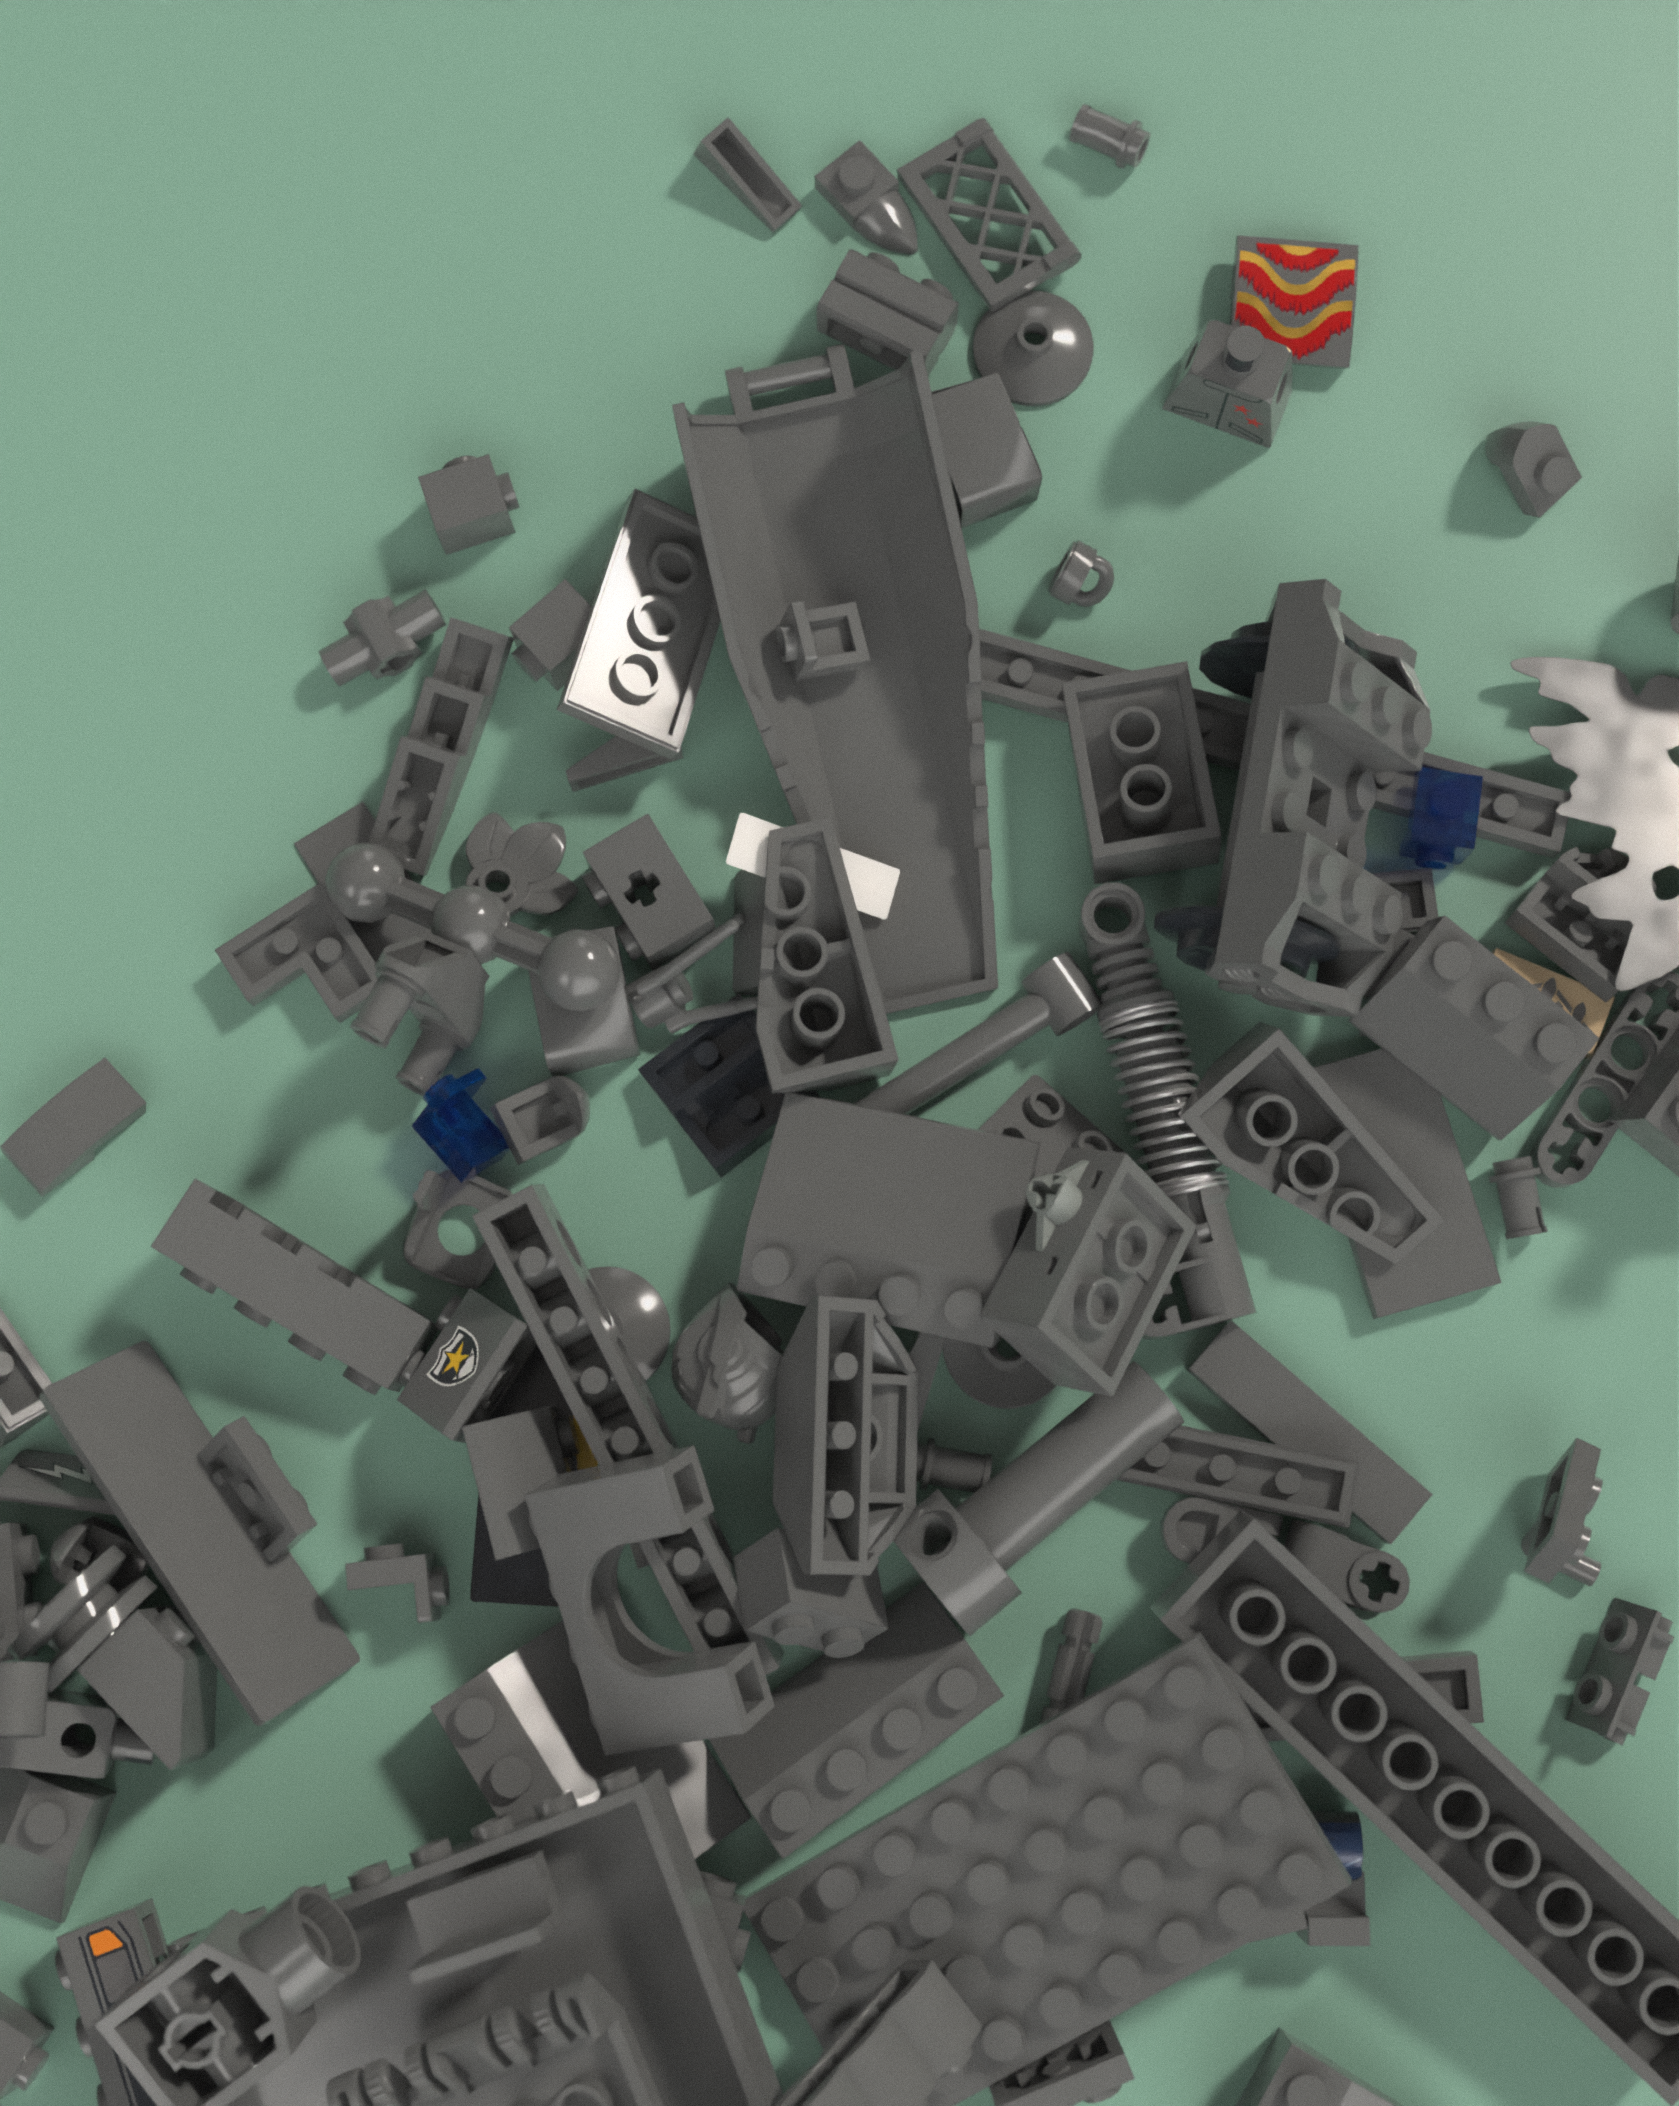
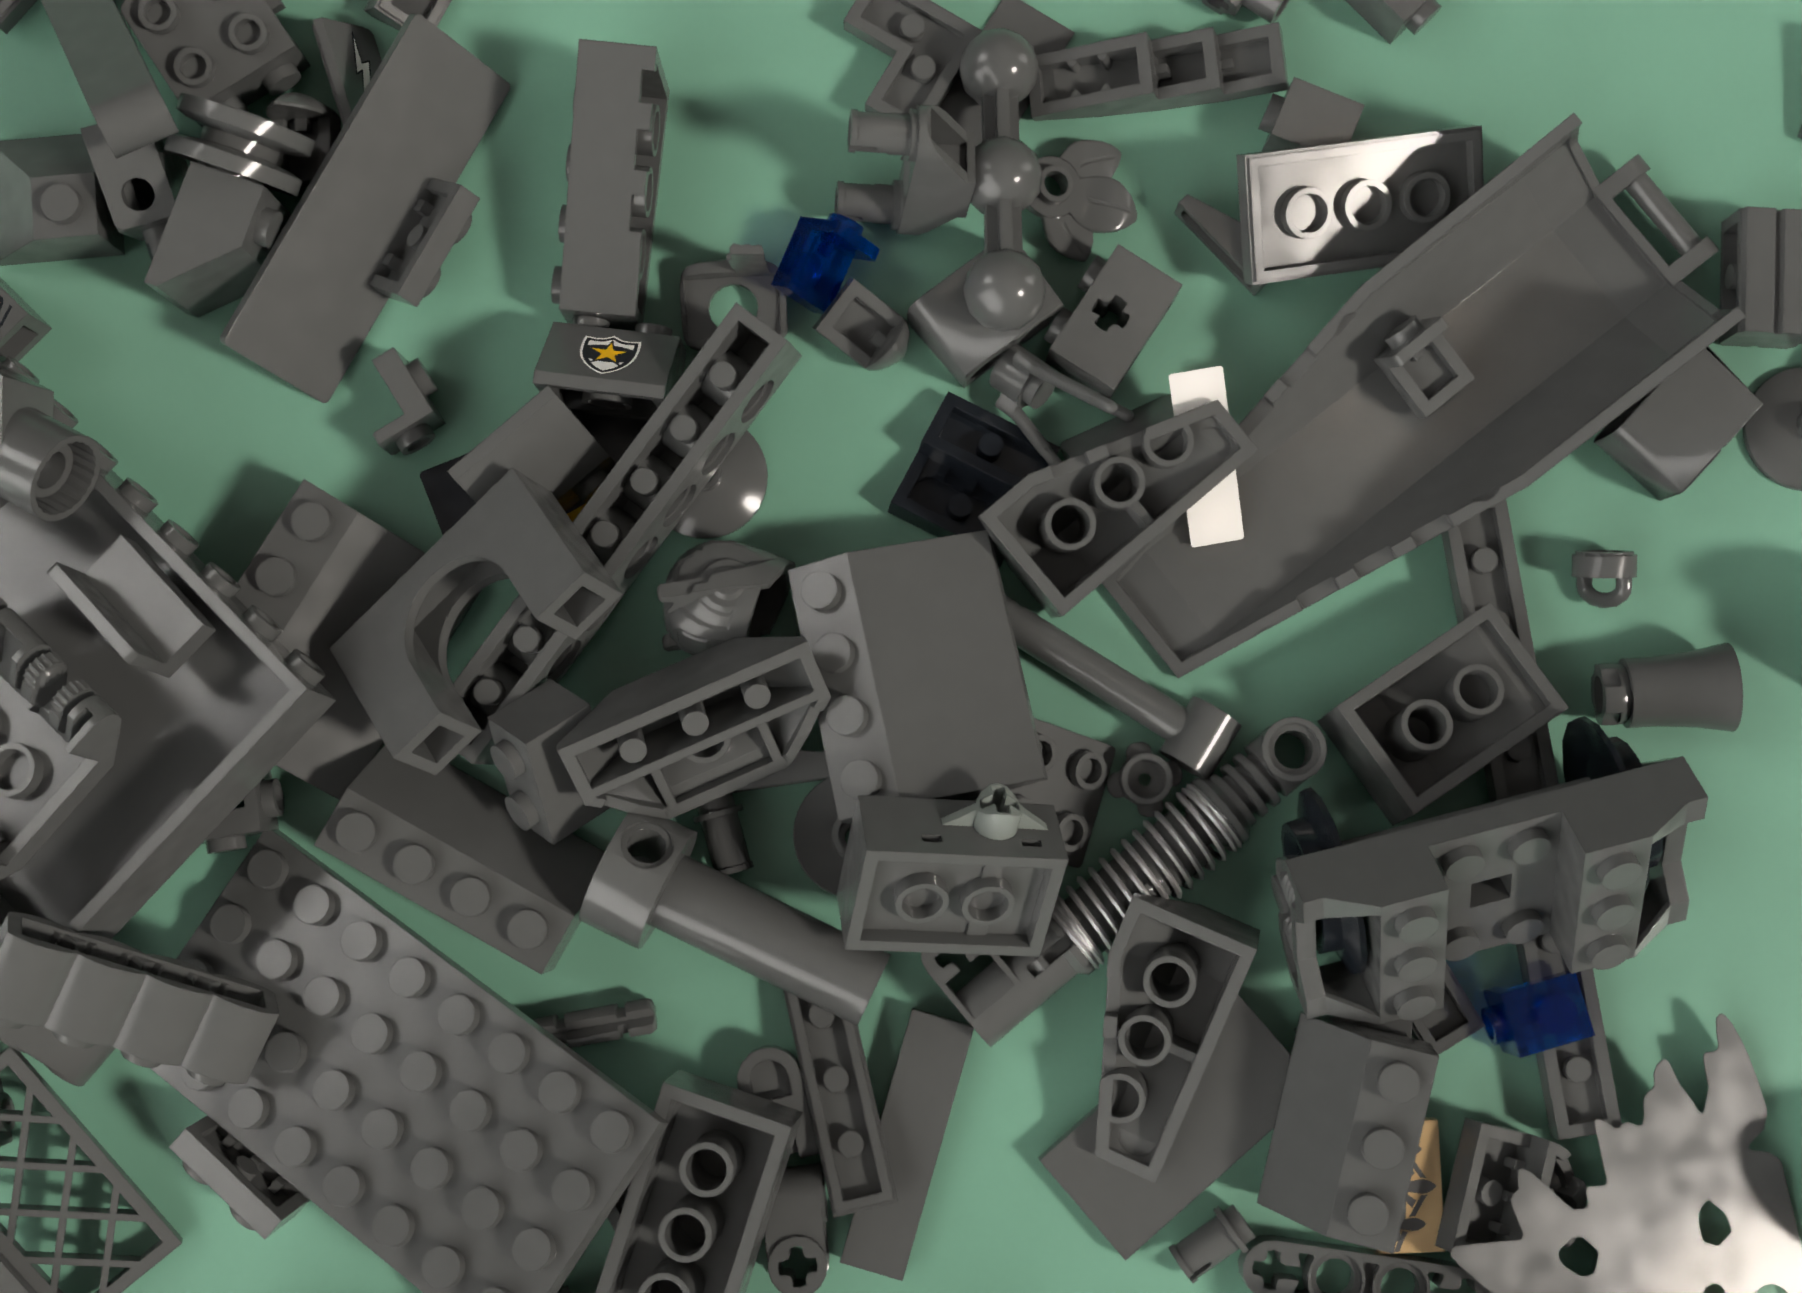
camera: 60 degrees right, 5 degrees up
(1078, 1043) = (1162, 777): none -> dark grey plate
(1210, 569) = (1671, 690): none -> dark grey plant

